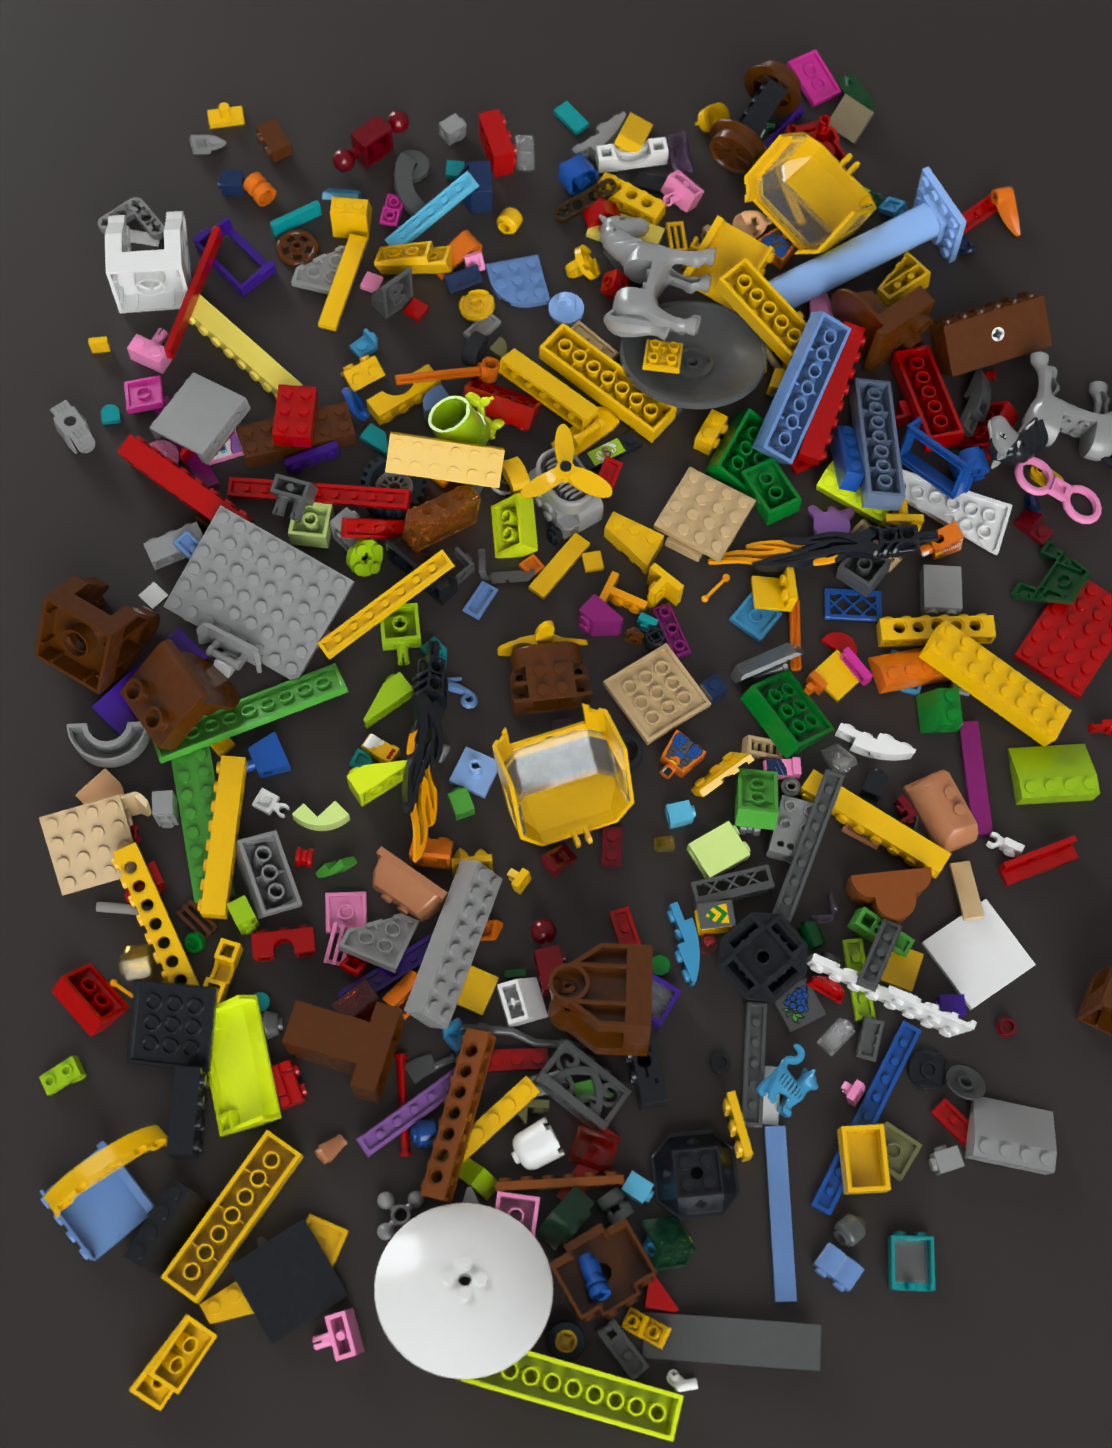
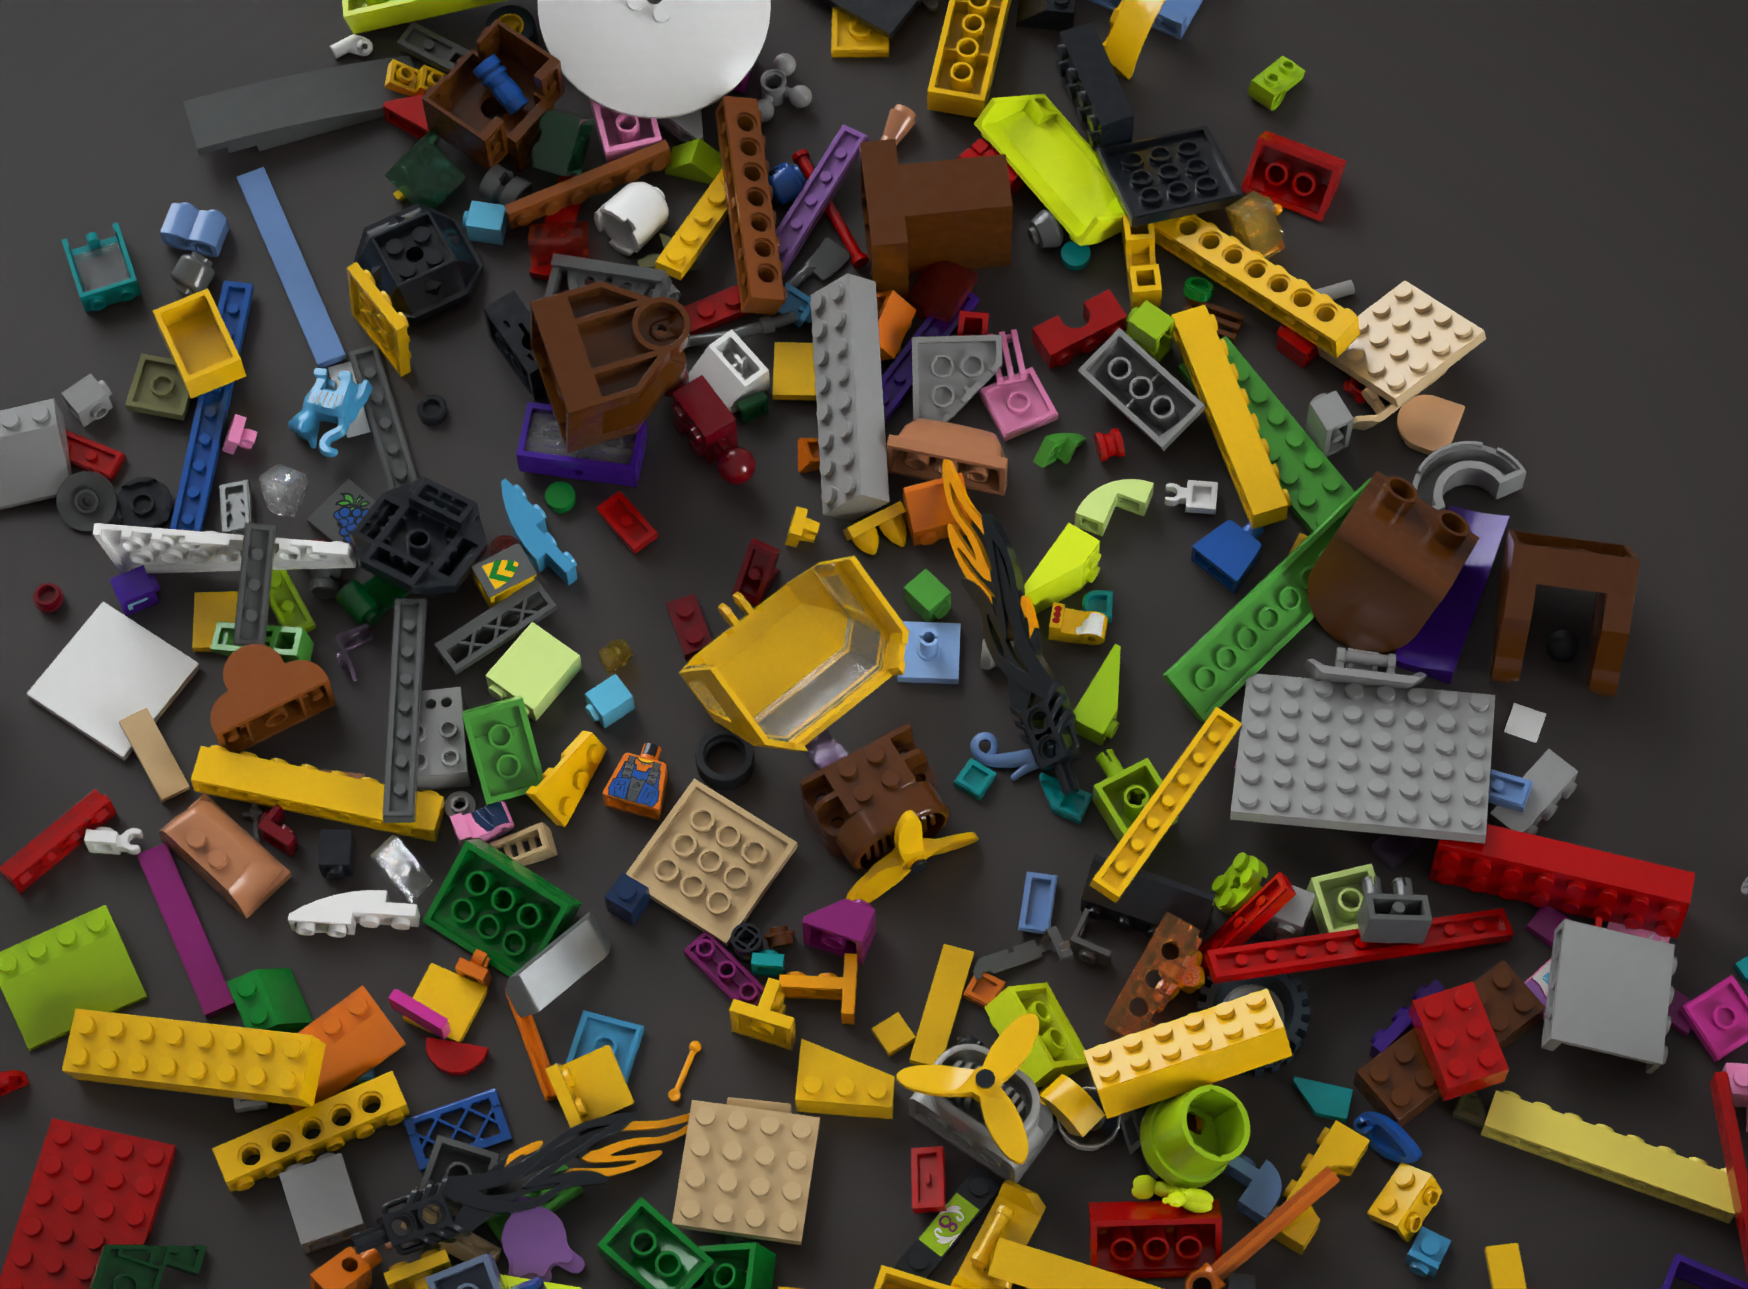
camera: 165 degrees right, 5 degrees down
(482, 685) = (975, 779): none -> teal tile

